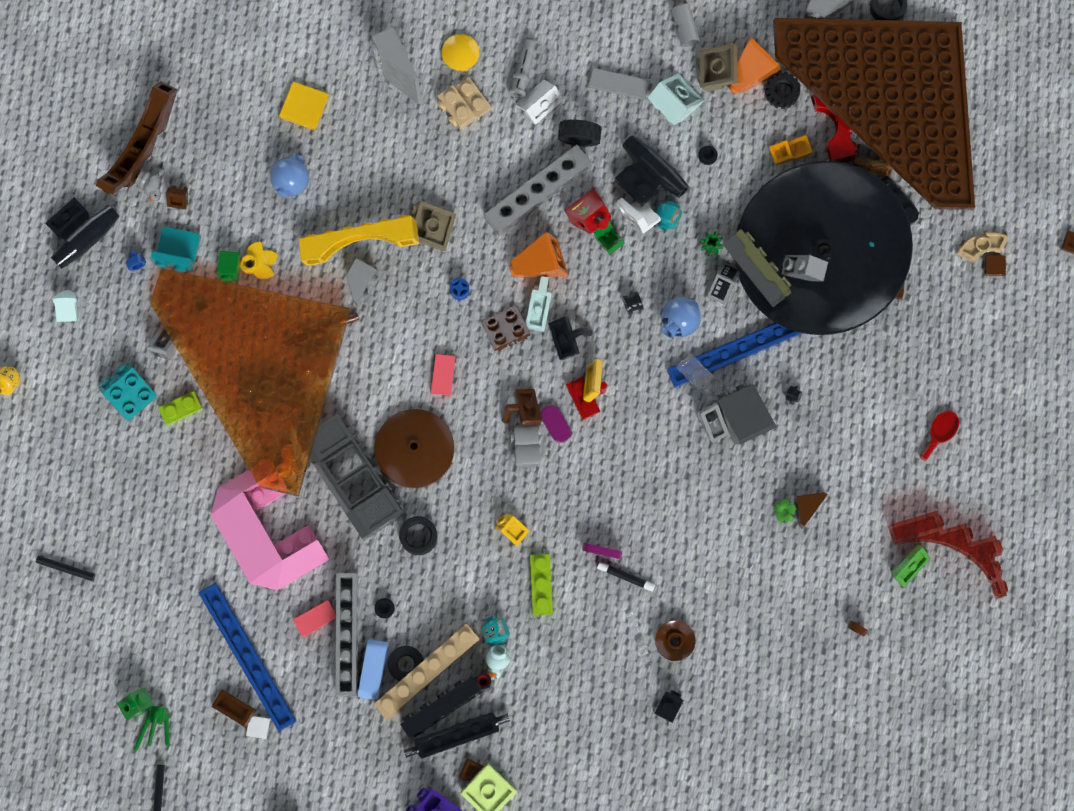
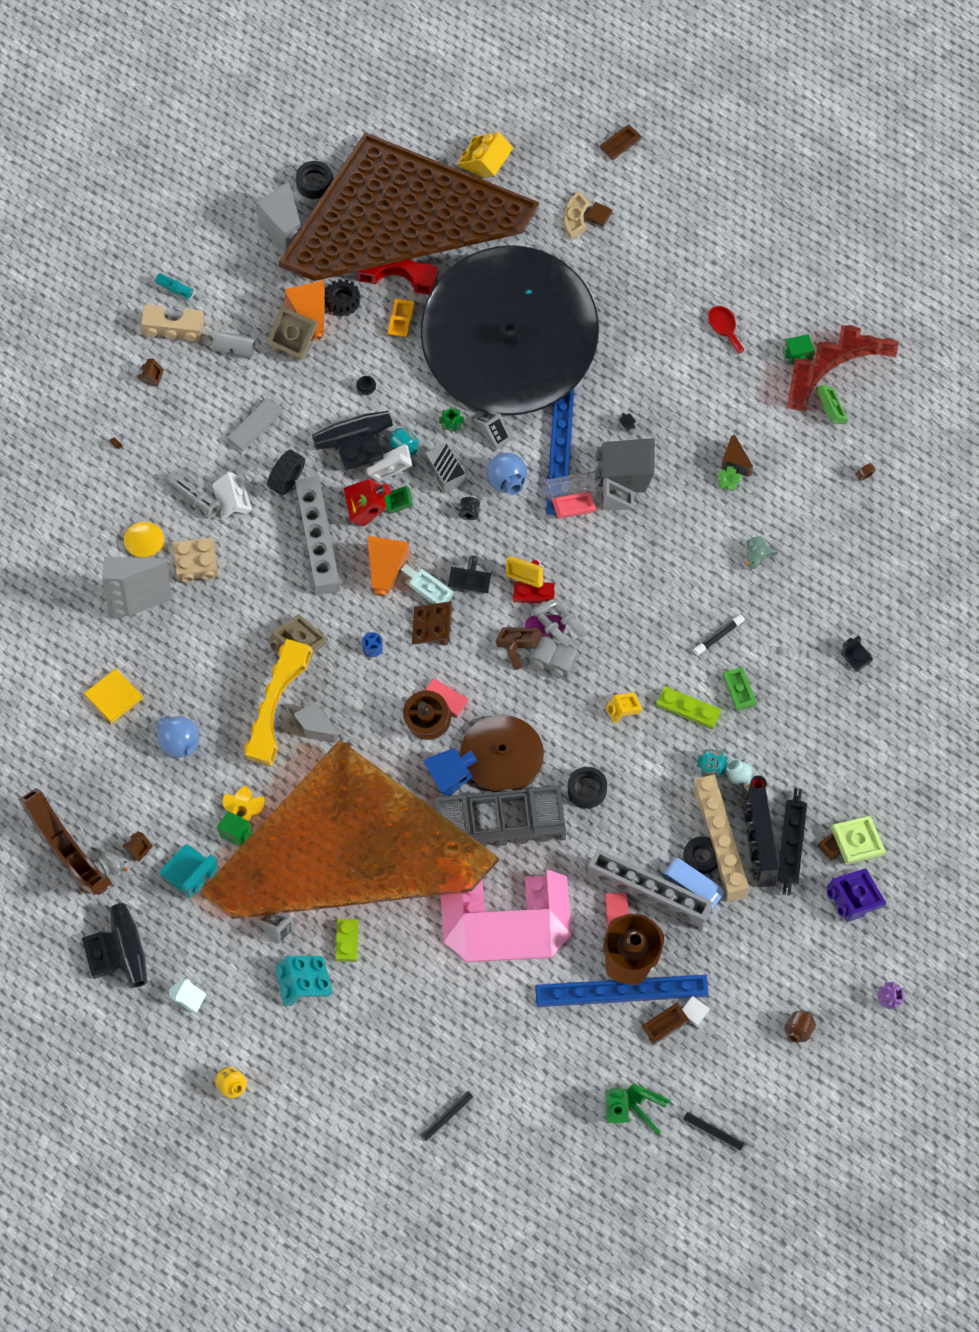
camera: 65 degrees left, 15 degrees down
(135, 261) = (180, 912): blue tile -> none
(281, 647) = (632, 948): none -> reddish brown piece
(372, 413) = (450, 769): none -> blue torso
(384, 608) = (639, 849): black plate -> none
(412, 368) = (427, 715): none -> reddish brown wheel
(551, 430) = (553, 627): none -> light grey piece
(580, 620) = (739, 689): none -> bright green plate
(602, 551) = (685, 641): magenta tile -> none
(661, 263) = (446, 468): none -> light grey brick
(675, 98) = (299, 385): light aqua slope -> none
(677, 630) = (800, 612): reddish brown dish -> none
(684, 390) = (574, 505): none -> coral tile
(723, 571) = (757, 552): none -> sand green animal
(757, 268) = (497, 391): piece -> none
(804, 267) = (520, 350): light grey slope -> none
(873, 166) = (461, 253): clear orange tile -> none
(950, 509) = (798, 347): none -> green brick
(998, 136) = (485, 154): none -> yellow slope

